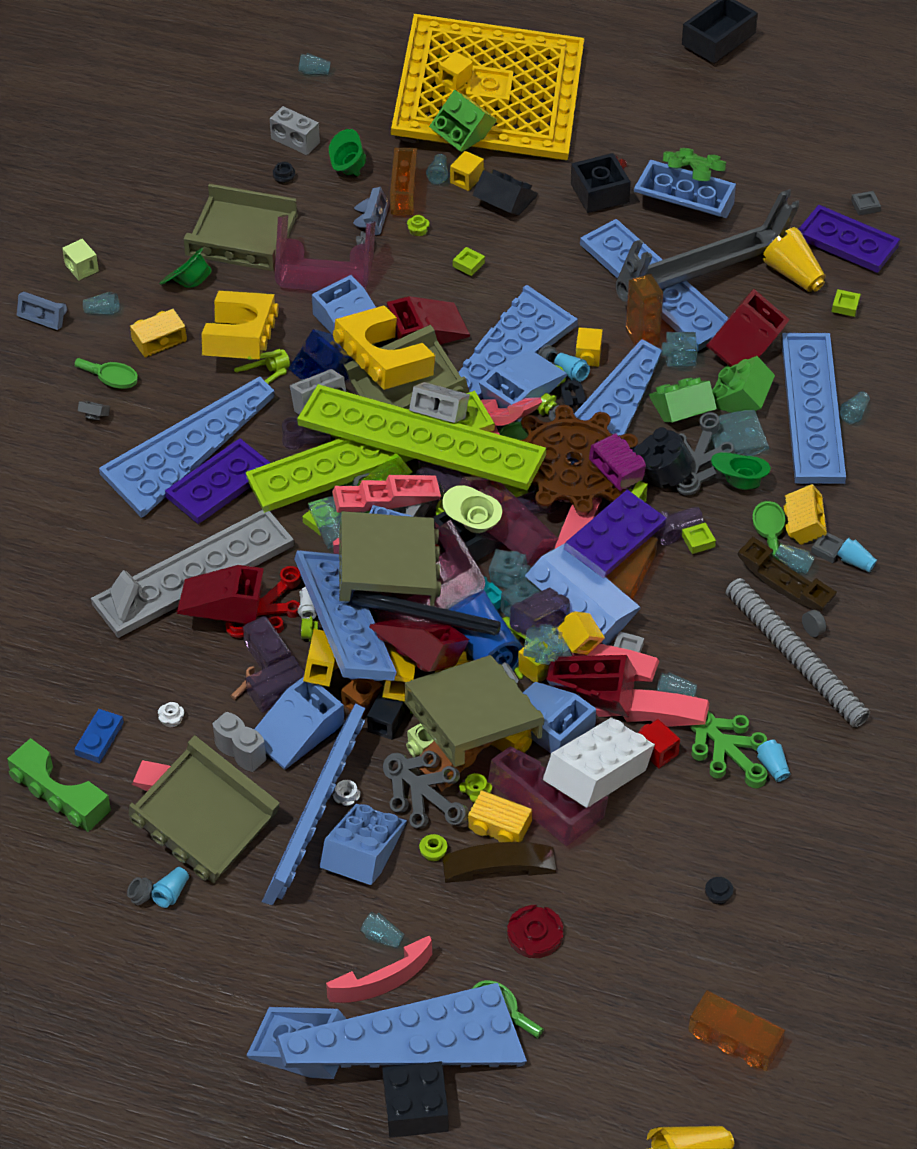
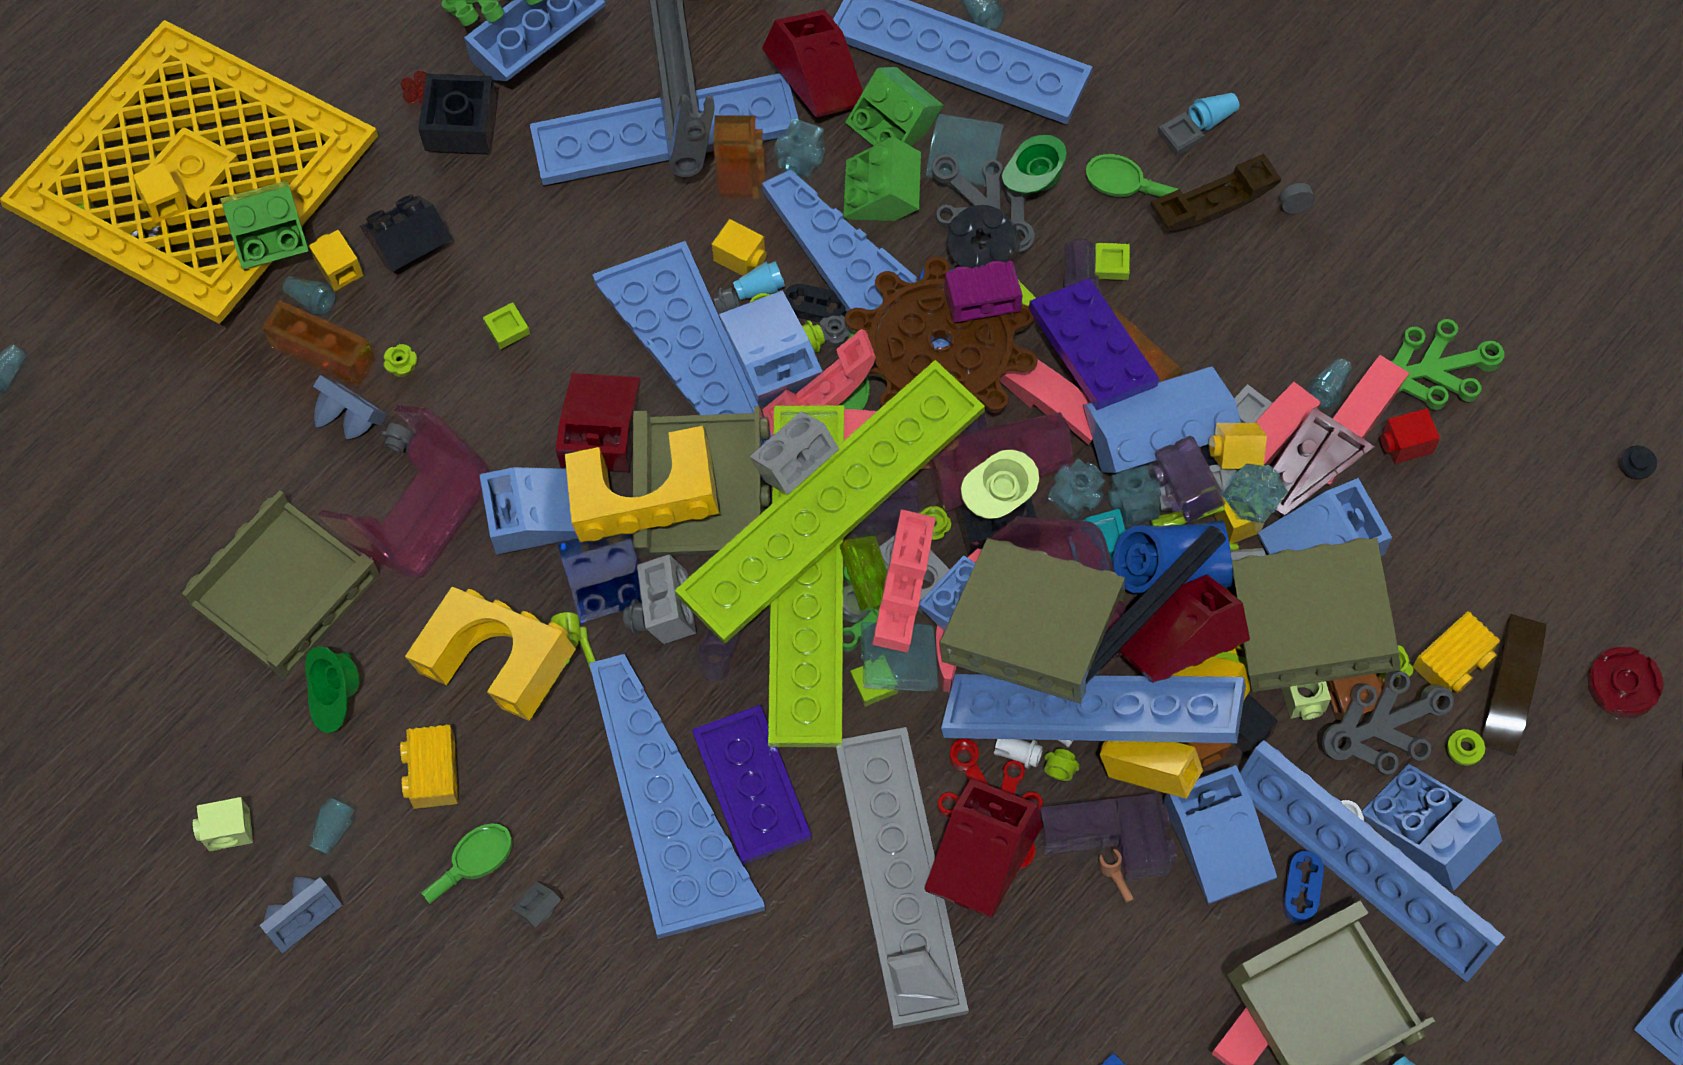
camera: 65 degrees left, 15 degrees up
(171, 719) = (1128, 998): white plate -> none
(239, 741) = (1230, 914): light grey brick -> none
(283, 172) = (199, 490): black plate -> none
(285, 784) = (1295, 886): none -> blue beam
(294, 130) = (128, 443): light grey brick -> none
(347, 152) = (217, 392): green piece -> none
(349, 989) = (1629, 831): coral slope -> none
(381, 930) = (1571, 855): clear light blue cone -> none
(523, 783) = (1466, 578): clear pink wedge -> none
(598, 762) = (1441, 508): white brick -> none
(773, 758) = (1479, 326): medium azure cone -> none
(795, 558) = (1195, 172): clear light blue cone -> none
(798, 652) = (1331, 234): light grey piece -> none
(805, 514) = (1133, 133): yellow brick -> none

